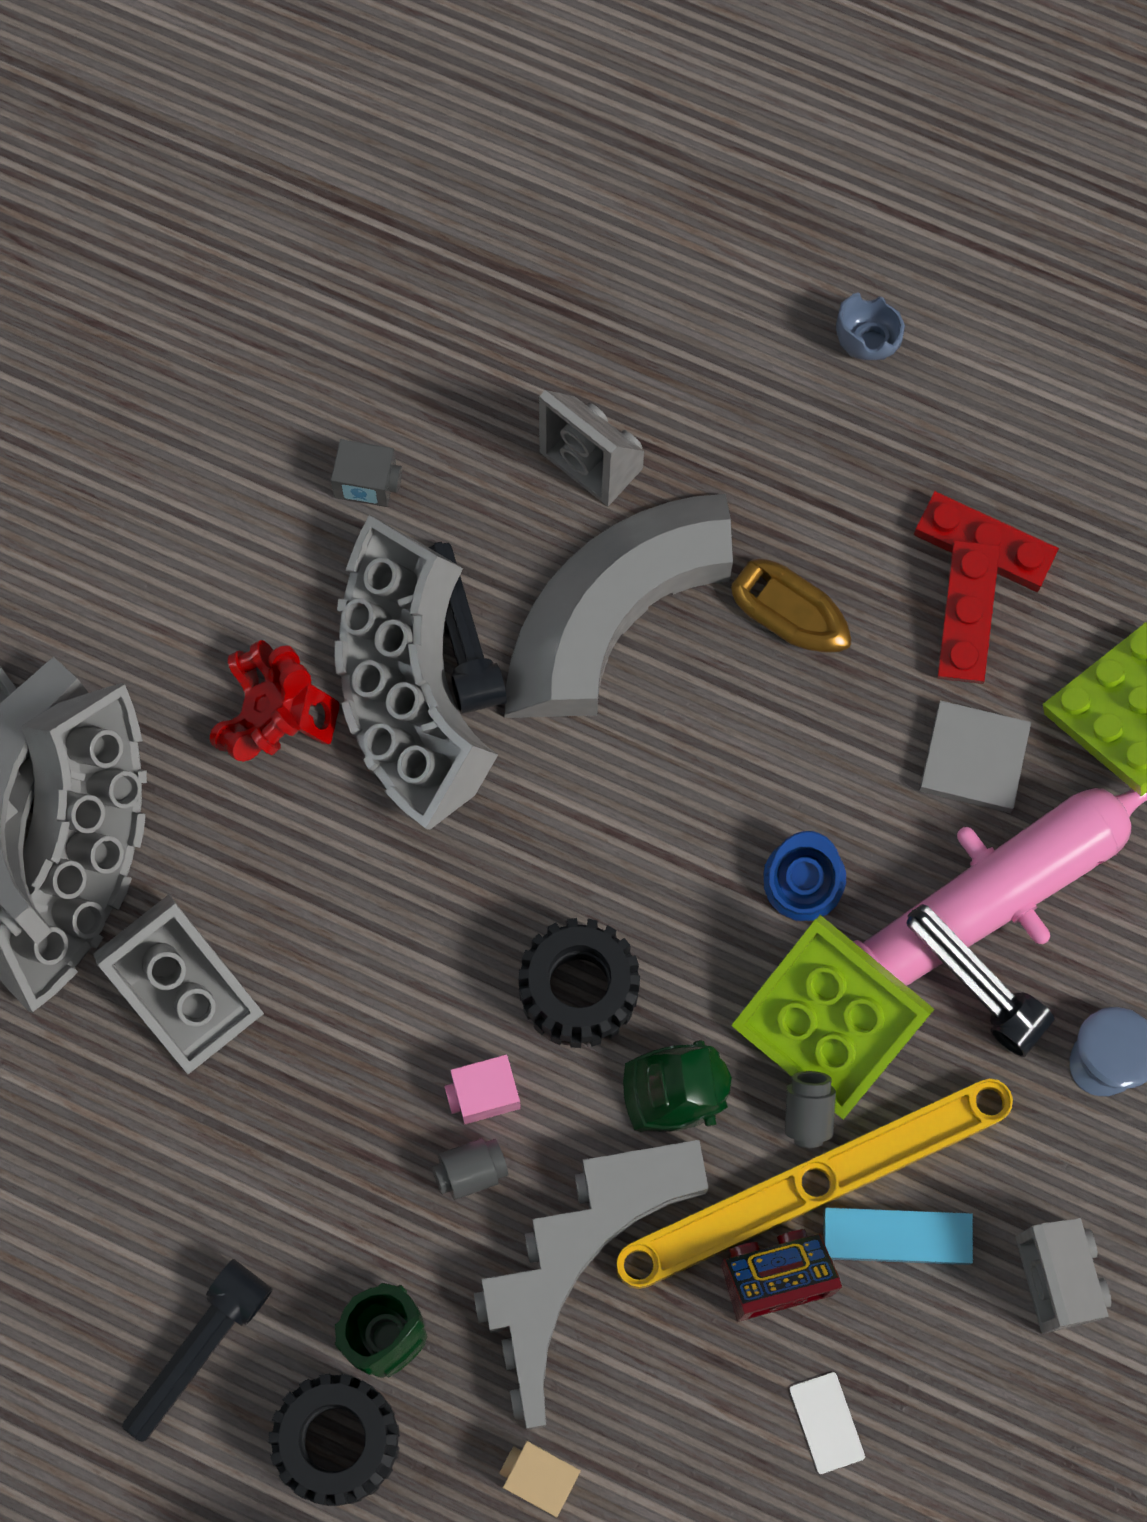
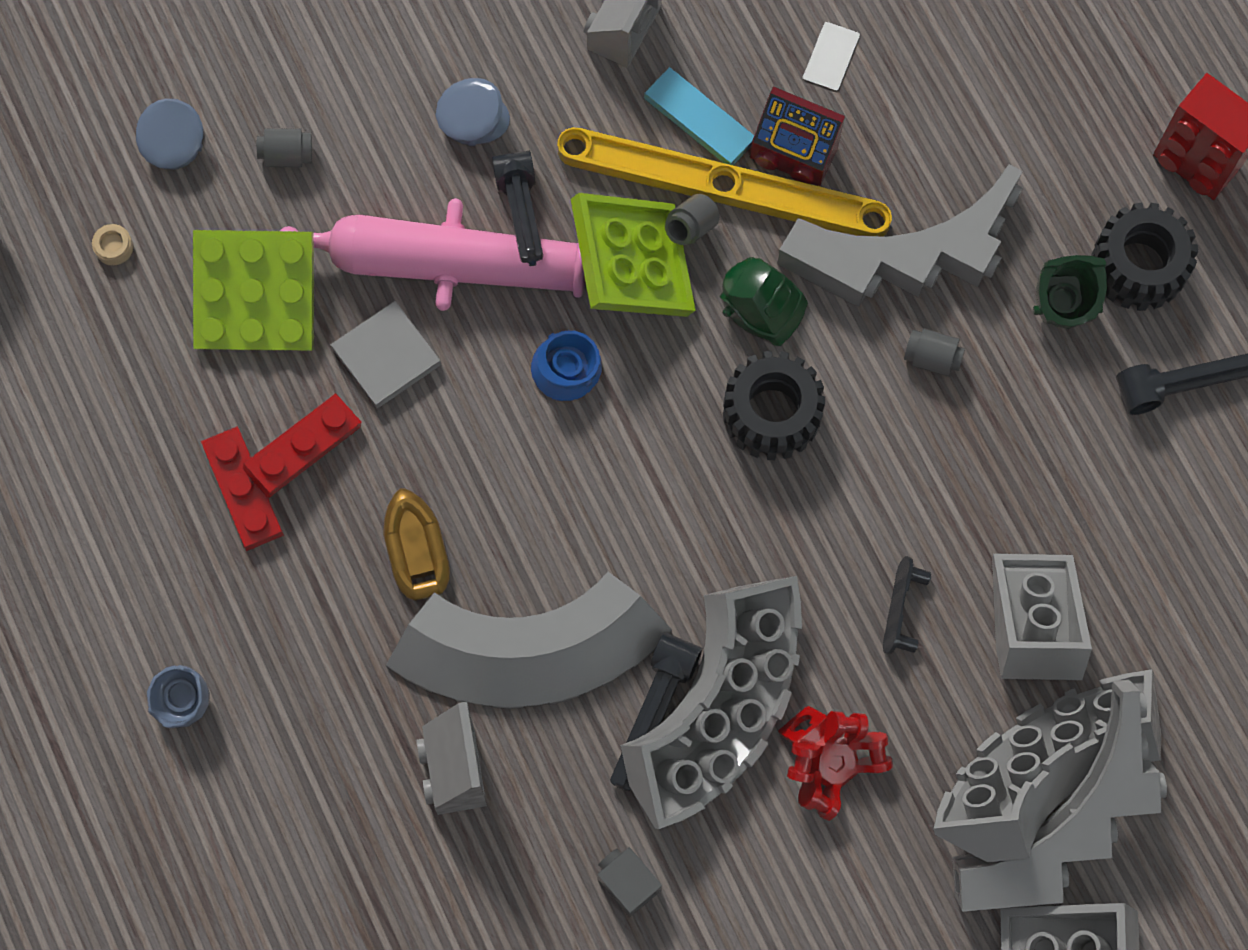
camera: 140 degrees left, 0 degrees up
(332, 928) = (892, 636): none -> black piece
(483, 1090) = (888, 391): bright pink brick -> none
(539, 1477) = (1032, 145): tan brick -> none

